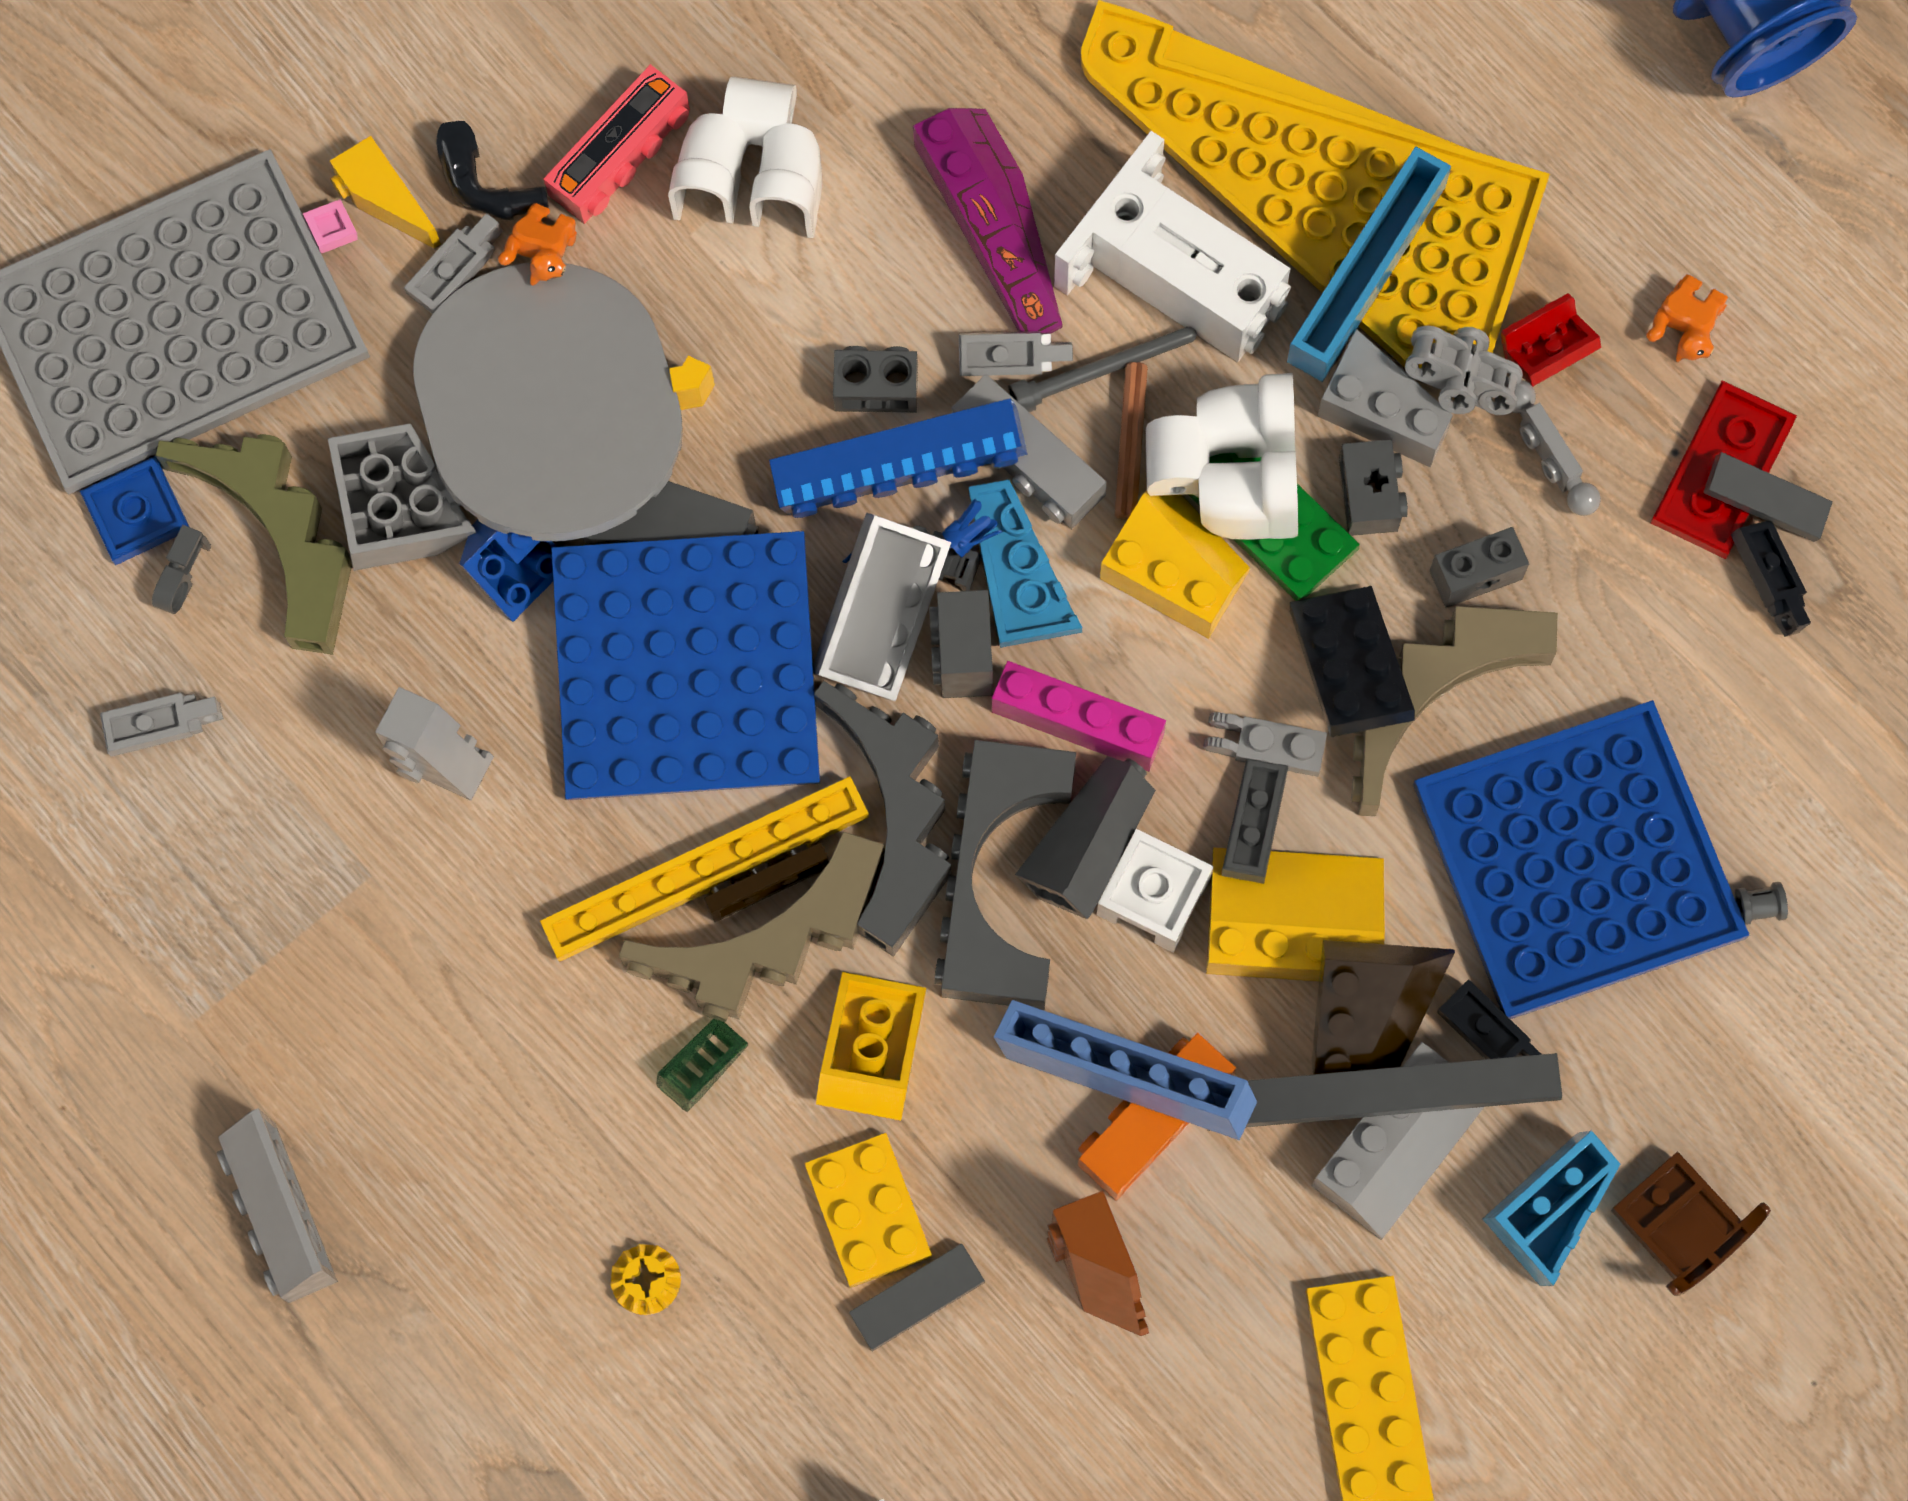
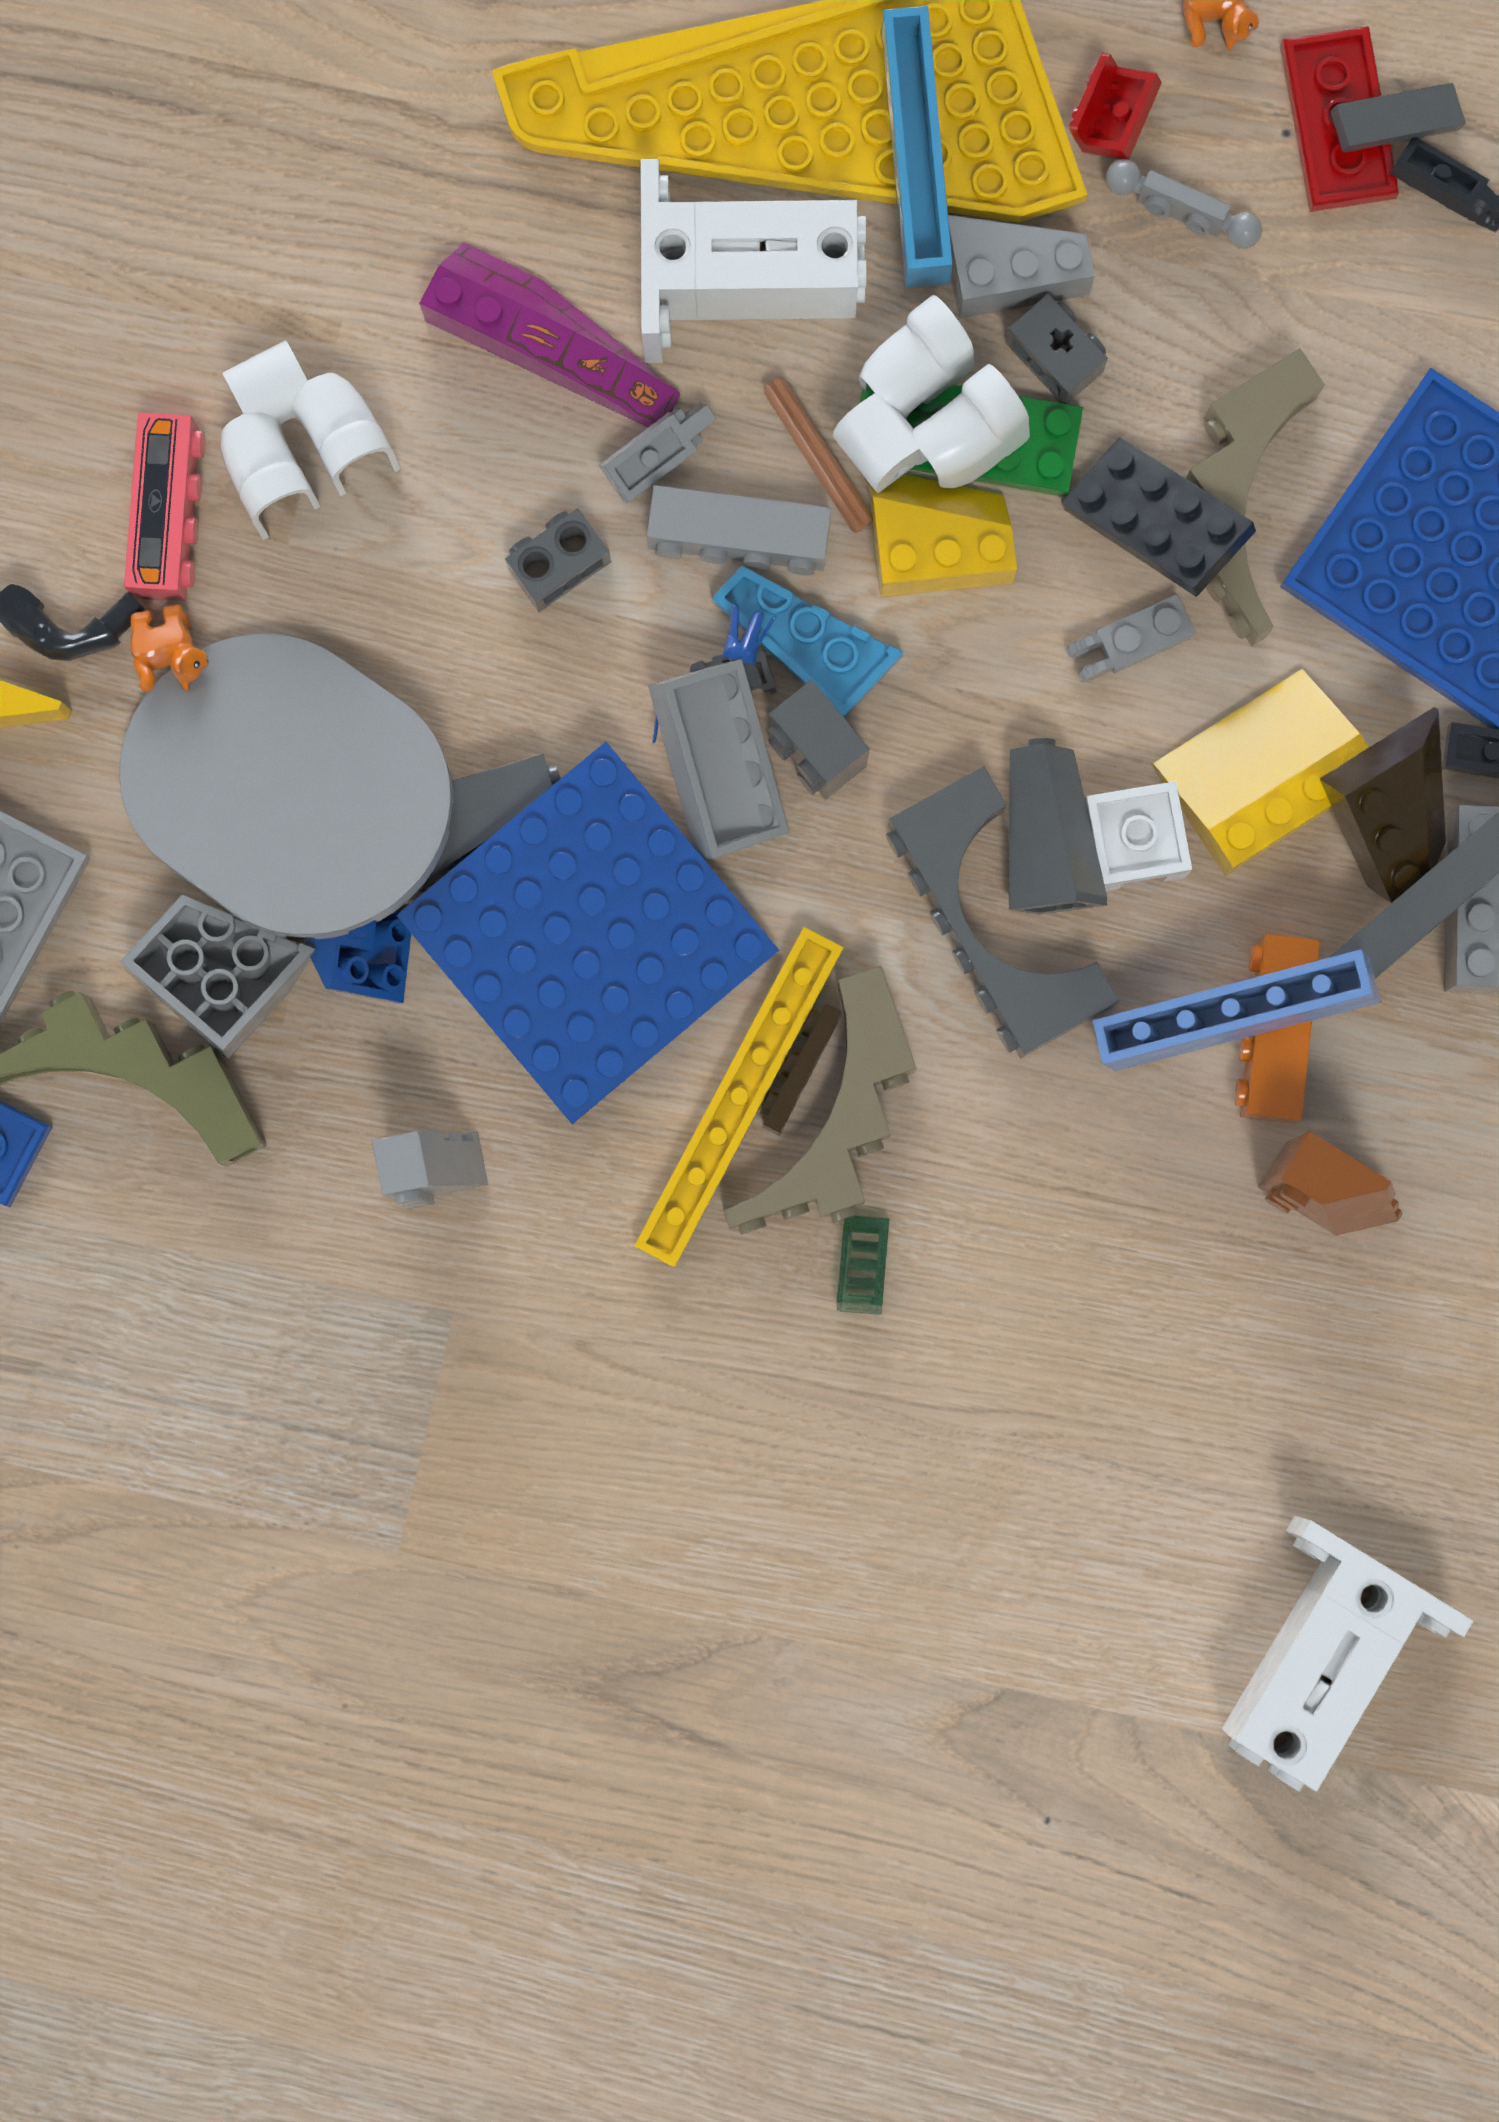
camera: 35 degrees left, 10 degrees up
(157, 722) = (161, 1319): light grey hinge -> none
(175, 579) = (76, 1178): dark grey piece -> none
(276, 1208) = (601, 1656): light grey slope -> none
(454, 263) = (101, 722): light grey hinge -> none
(662, 1290) = (933, 1481): yellow gear -> none
(692, 383) = (398, 676): yellow piece -> none
(868, 1210) = (1097, 1284): yellow plate -> none
(870, 1046) = (997, 1144): yellow slope -> none
(897, 756) = (828, 881): dark grey arch -> none
(898, 458) = (635, 615): blue brick -> none
(917, 1297) = (1192, 1326): dark grey tile -> none
(1031, 393) = (701, 474): dark grey piece -> none
(1077, 715) = (959, 732): dark pink brick -> none
(1255, 821) = (1174, 715): dark grey tile -> none
(1464, 370) = (1067, 186): light grey axle -> none
(1479, 567) = (1201, 354): dark grey brick -> none

